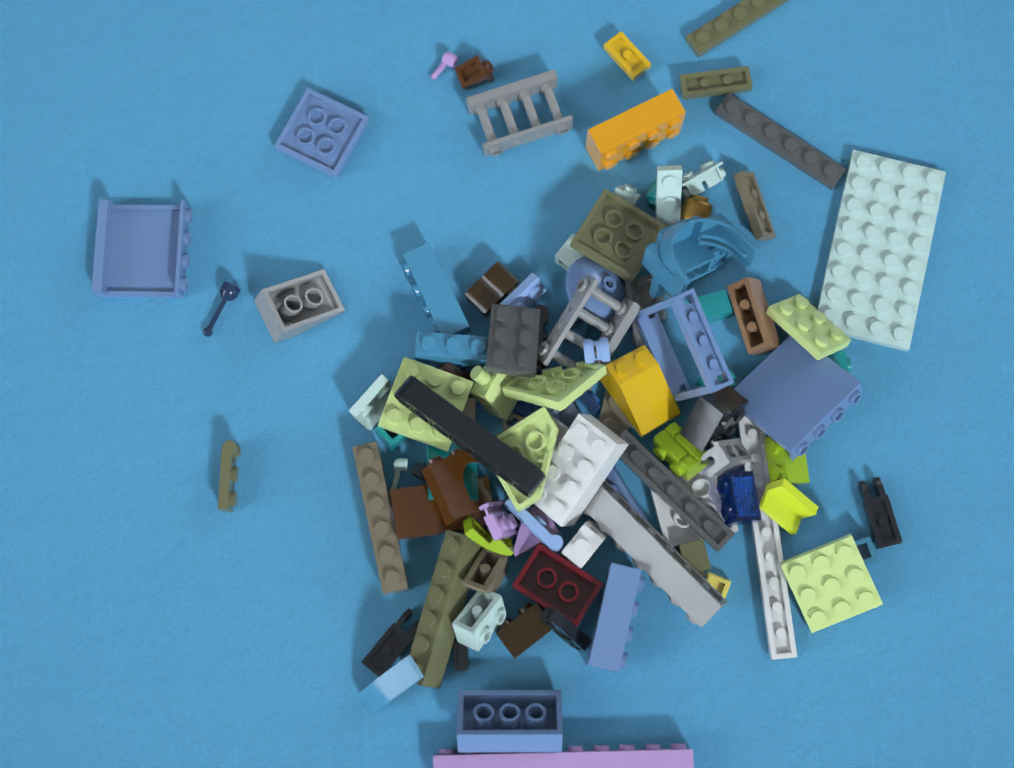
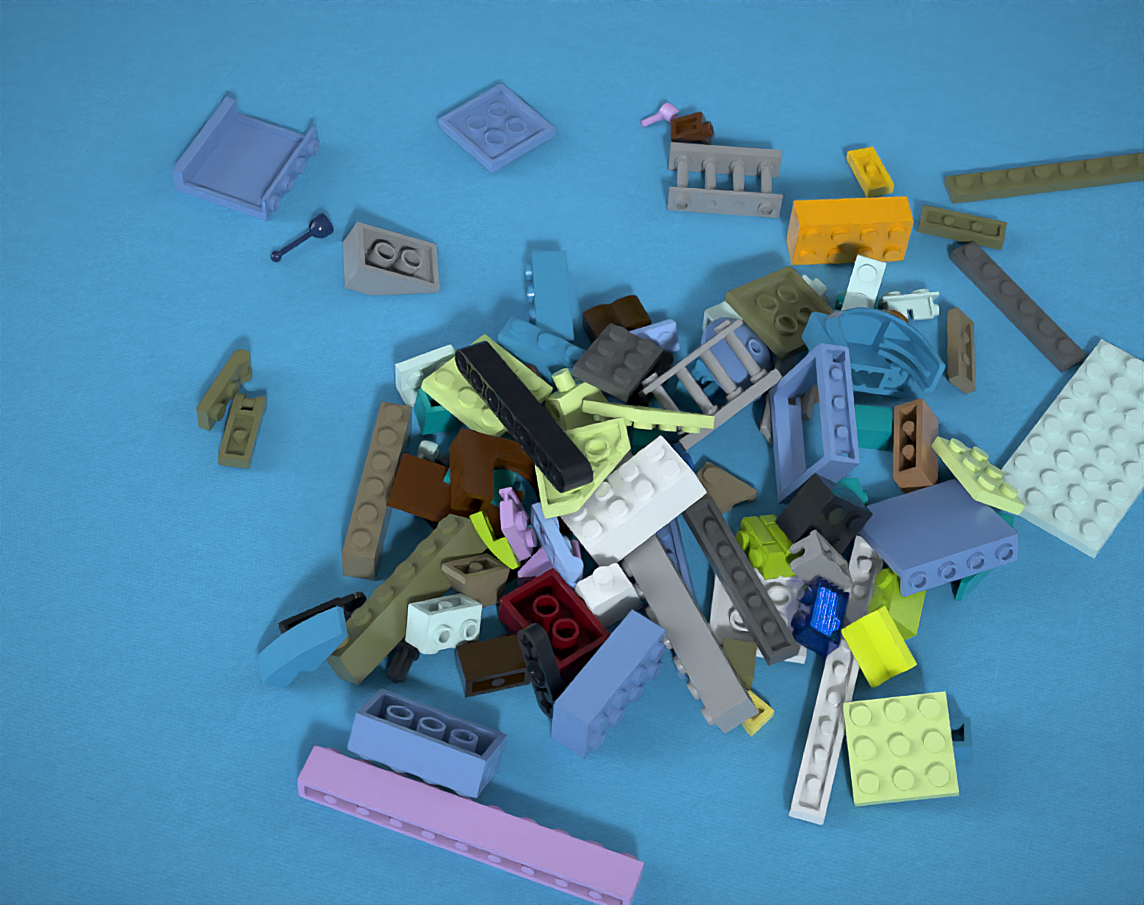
camera: 15 degrees right, 25 degrees down
(258, 506) = (242, 431): none -> olive plate
(602, 348) = (711, 399): light blue wheel -> none
(640, 390) = (746, 468): yellow slope -> none
(879, 515) = (993, 710): black hinge -> none

